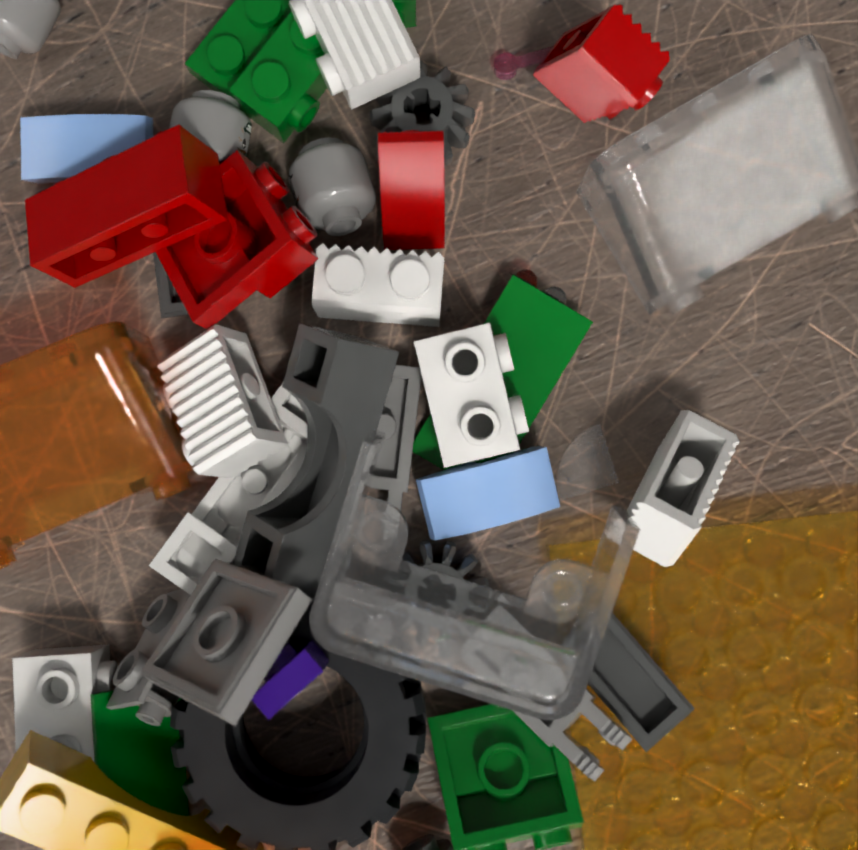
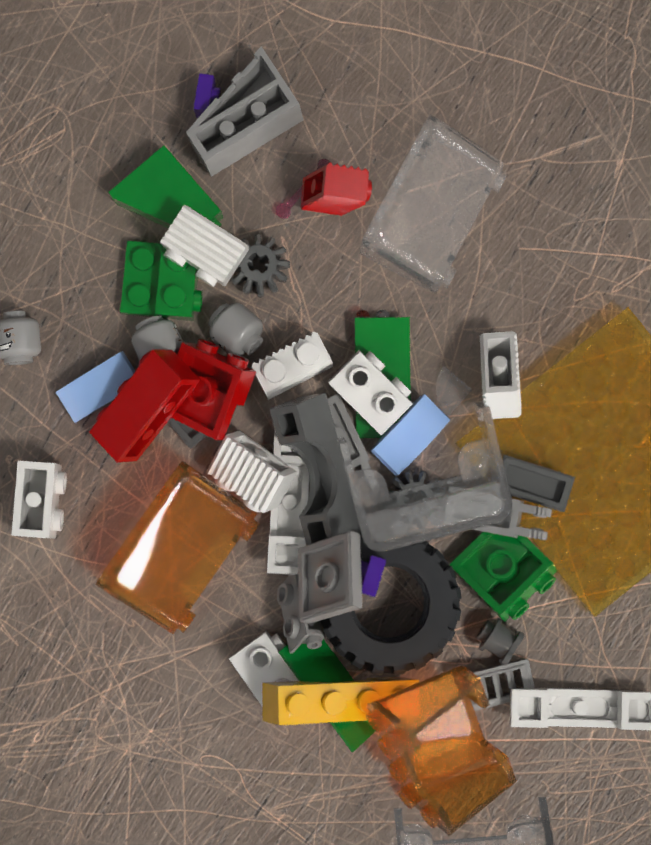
camera: 30 degrees left, 0 degrees up
(412, 189) = (279, 308): red slope -> none

